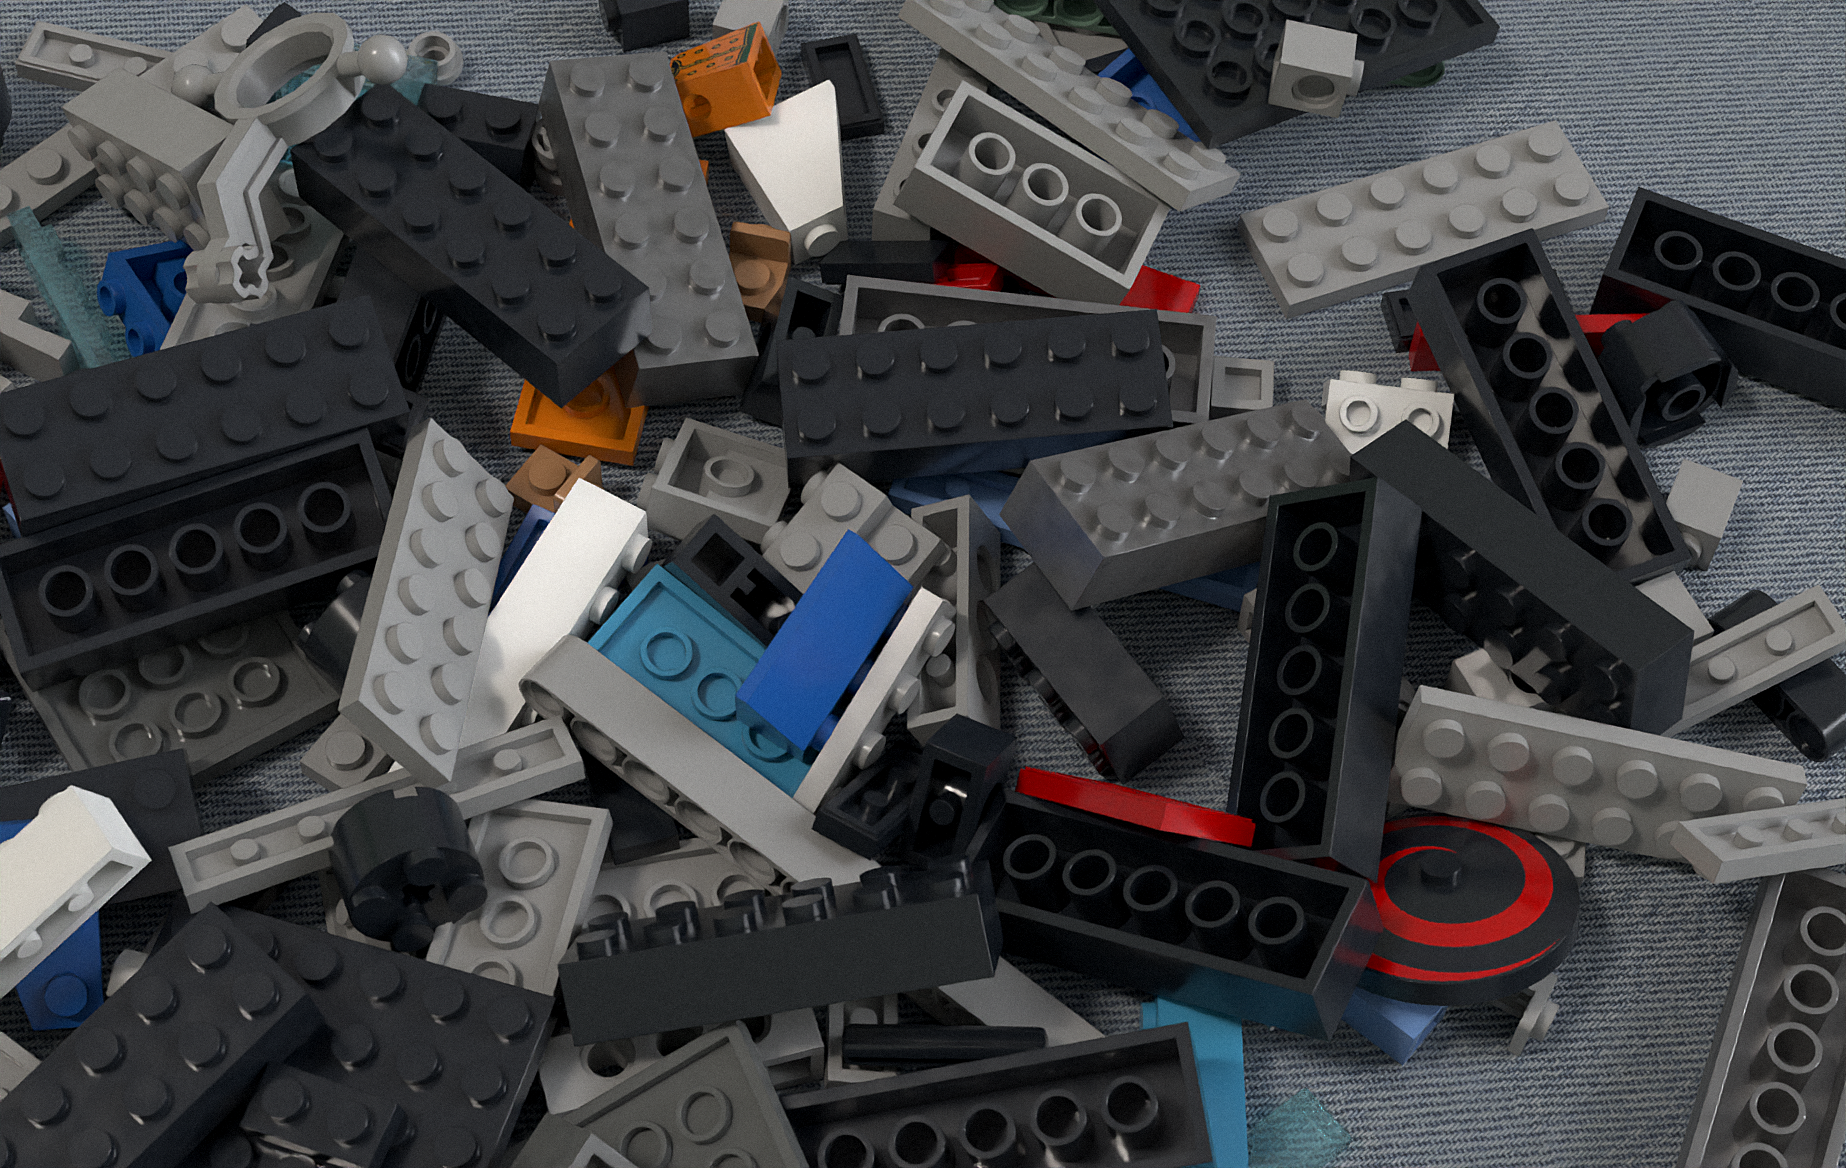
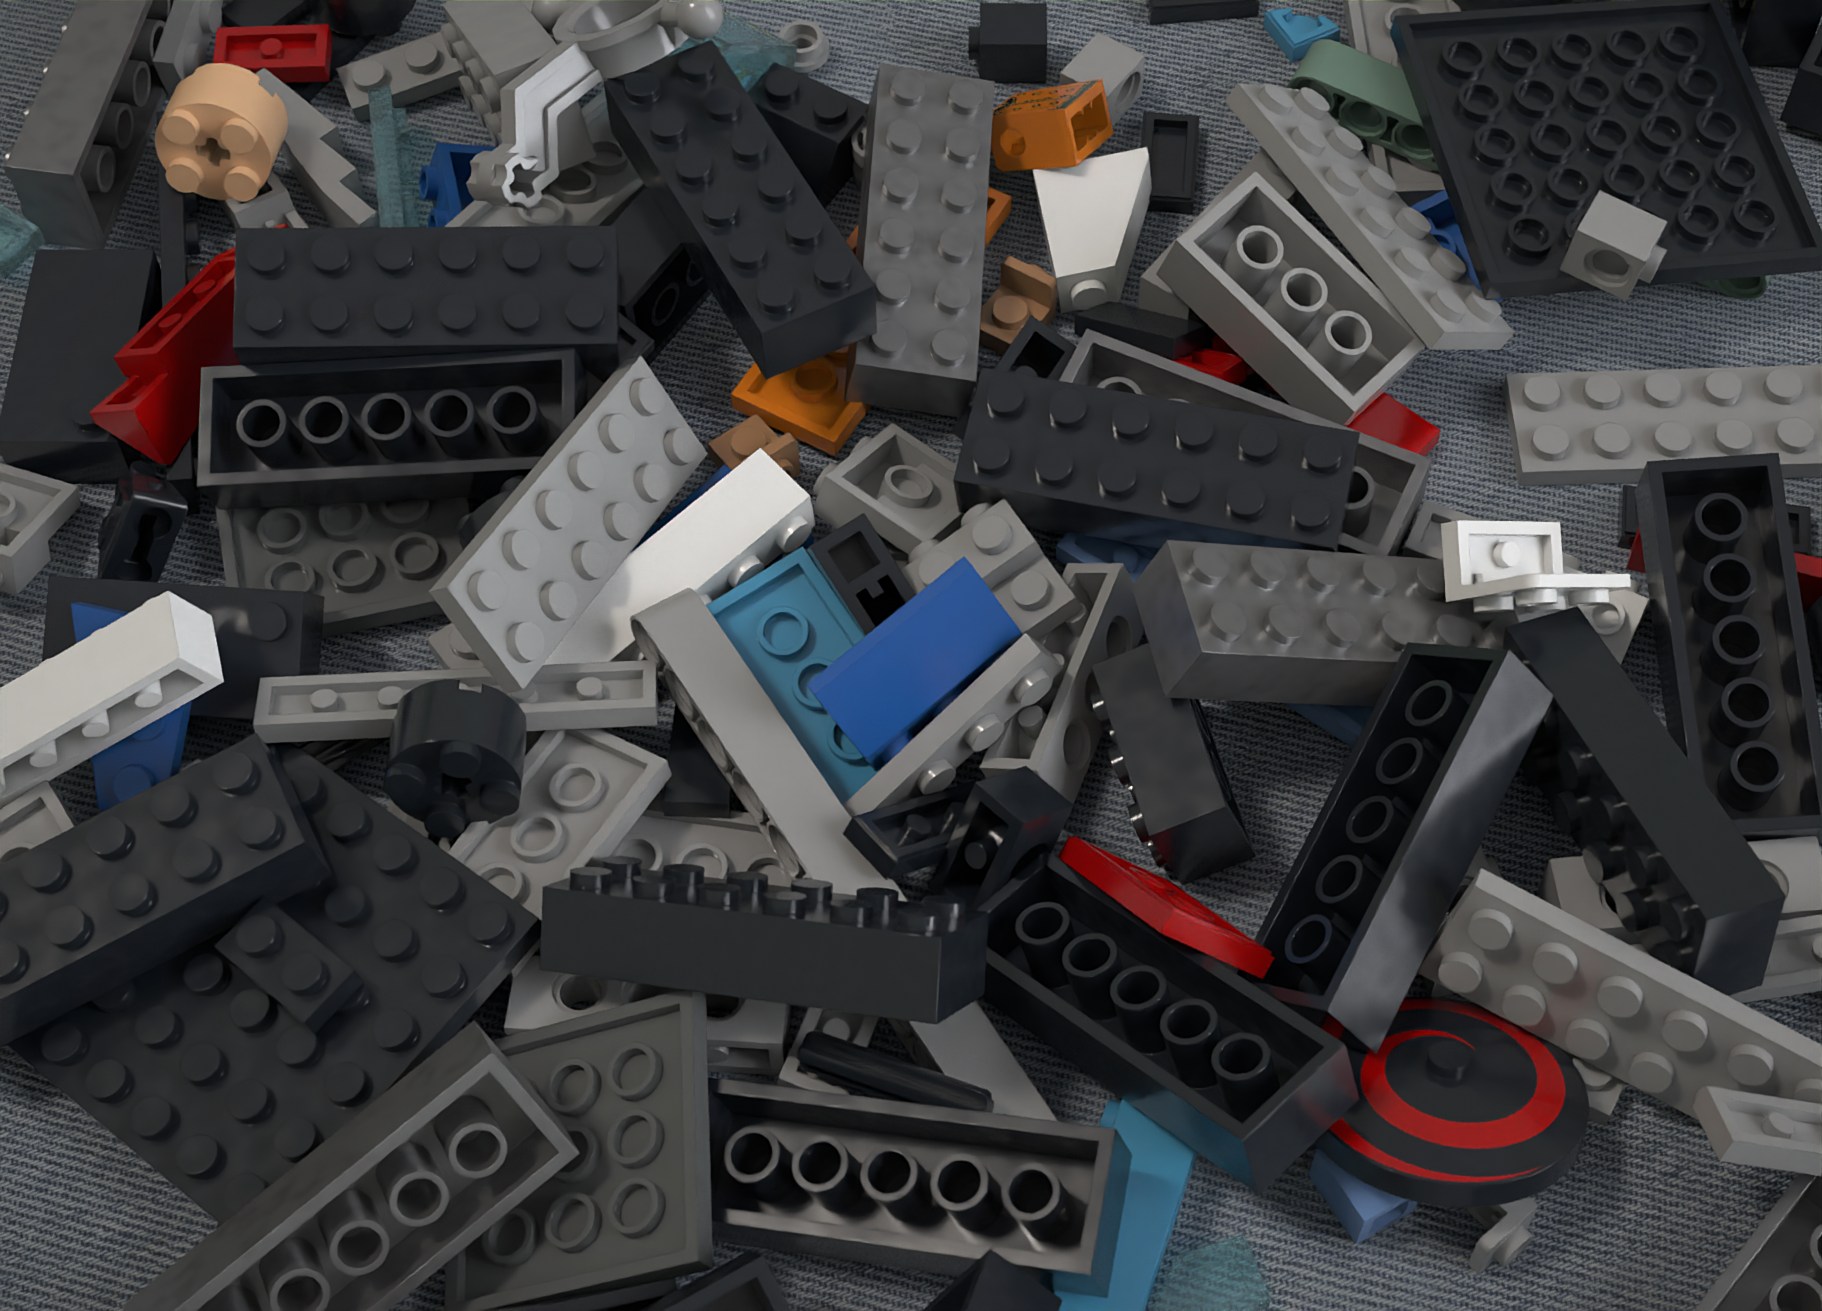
camera: 25 degrees right, 0 degrees up
(1334, 392) = (1519, 564): none -> white bracket

